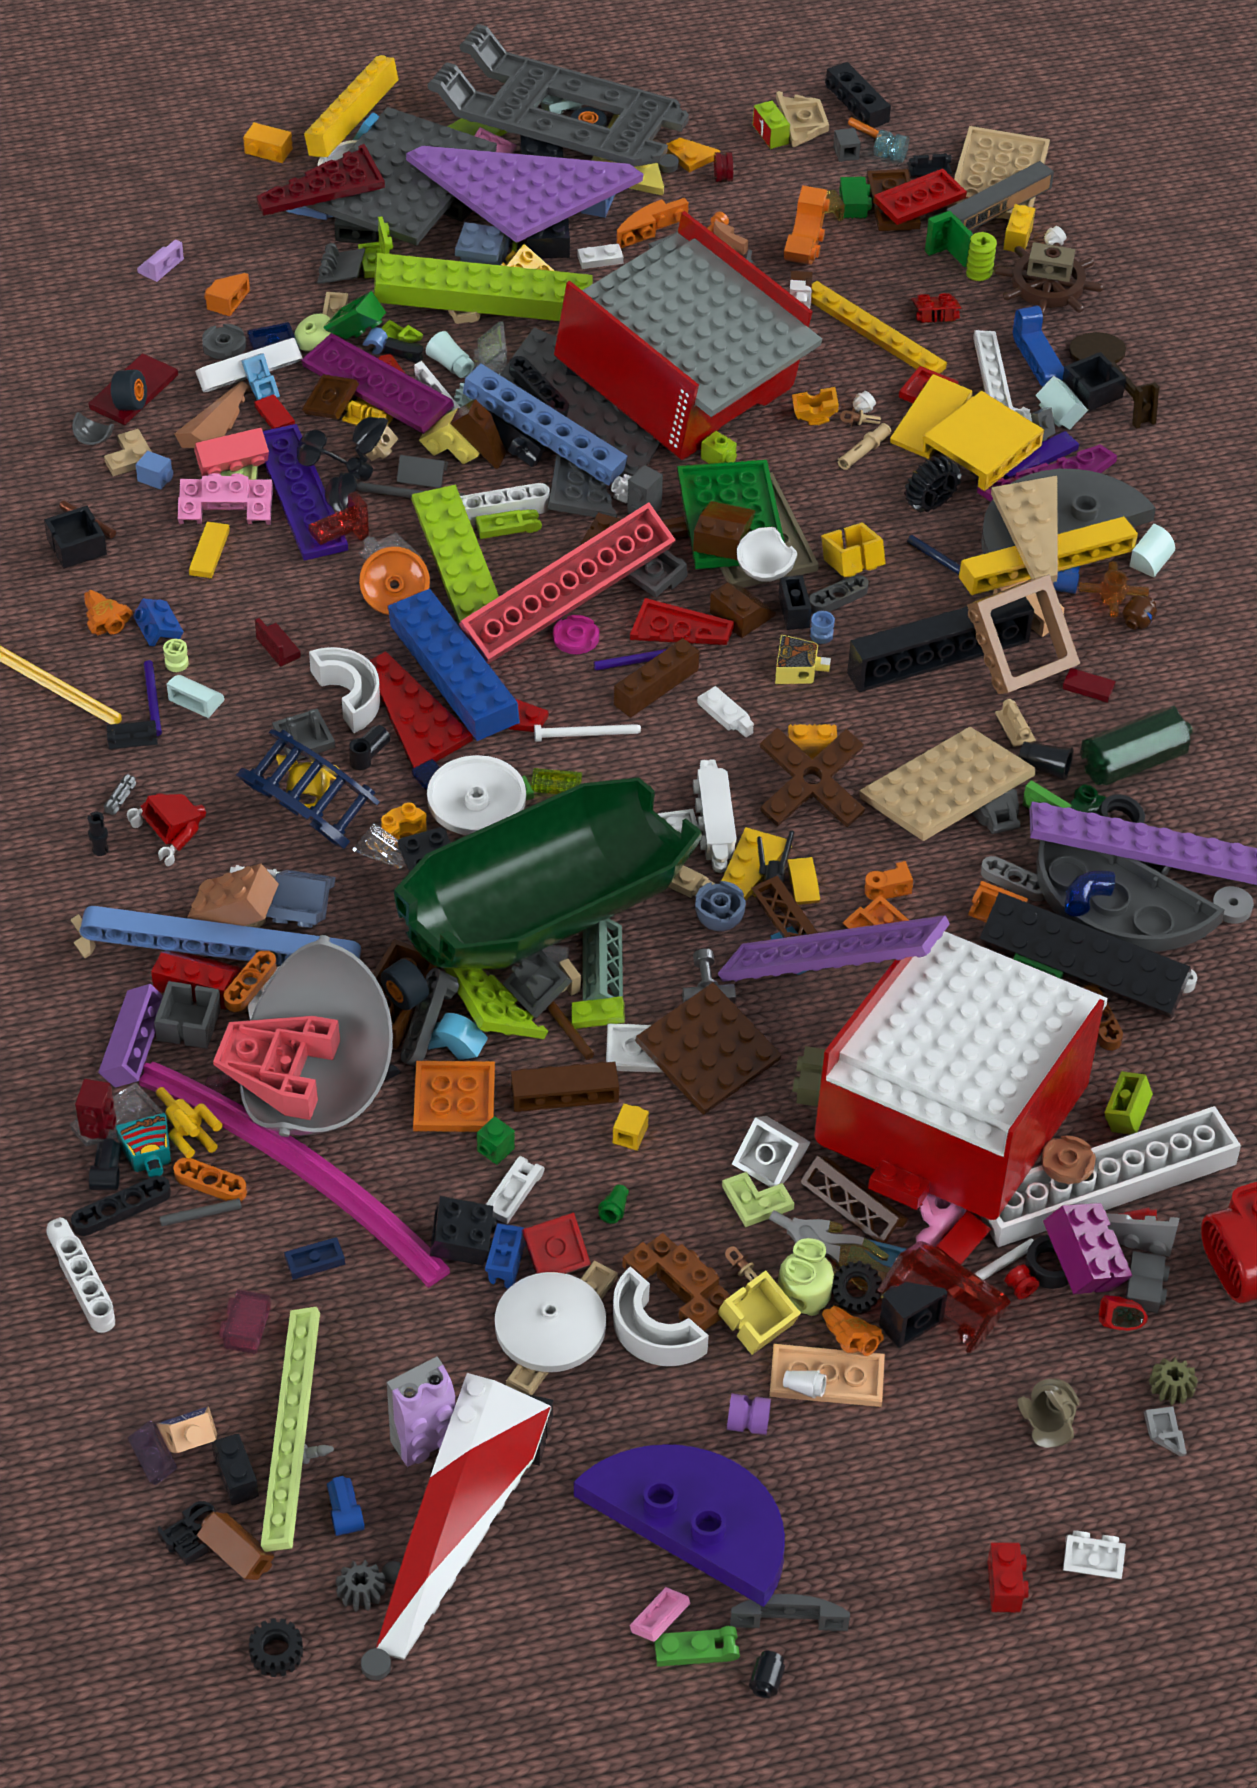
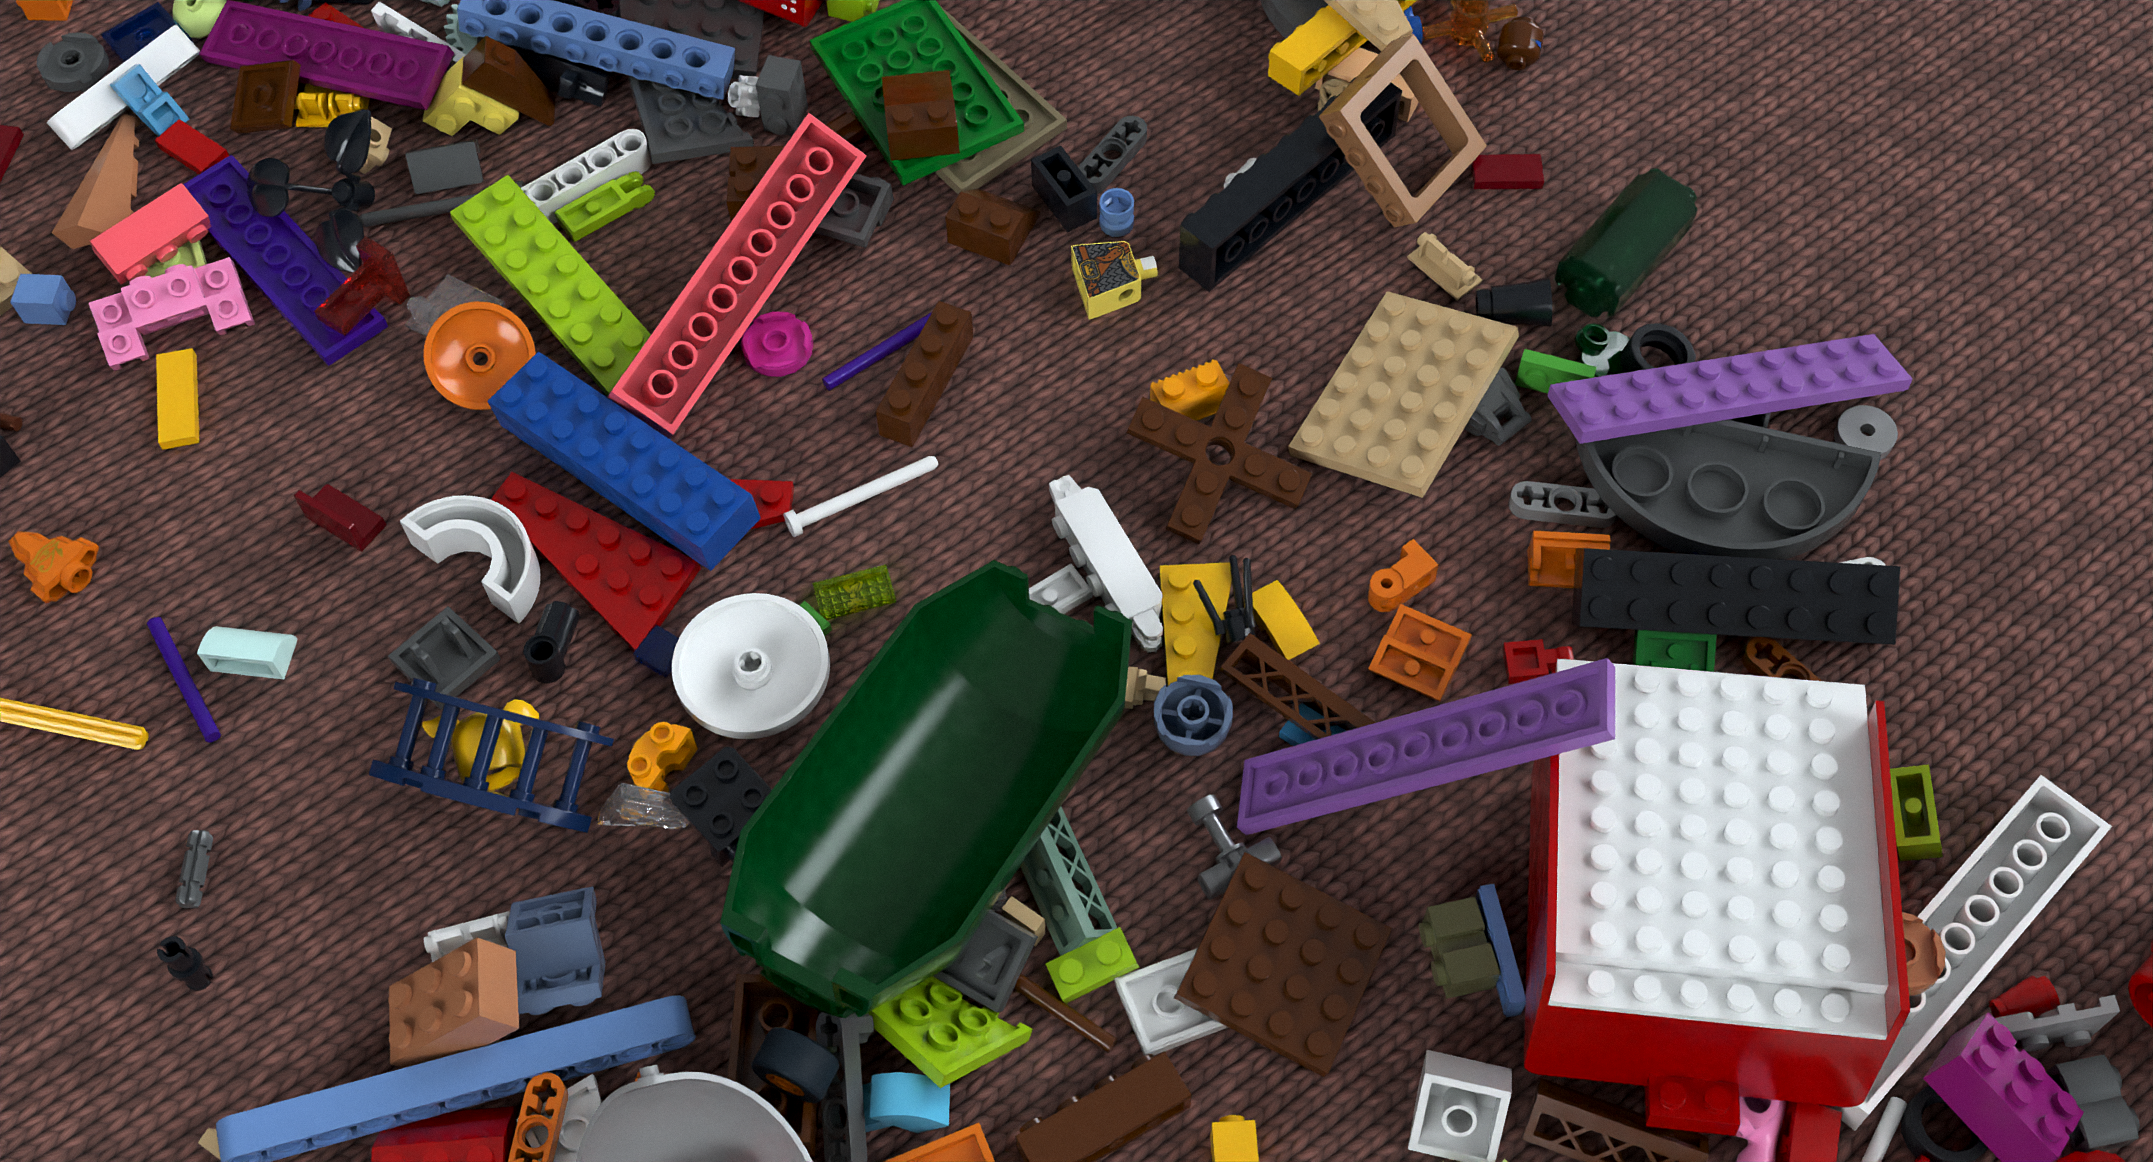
camera: 20 degrees left, 10 degrees up
(131, 734) = (173, 757): black hinge -> none
(157, 621) = (141, 546): blue bracket -> none
(171, 818) = (296, 887): red torso -> none
(175, 655) = (192, 594): yellowish green wheel -> none
(672, 623) = (916, 278): red wing -> none
(726, 711) = (1044, 389): white hinge -> none
(765, 555) = (1000, 134): white cylinder -> none
(862, 550) = (1116, 79): yellow piece -> none
(933, 553) = (1213, 51): dark blue bar -> none
(1084, 888) = (1690, 496): clear blue cylinder -> none

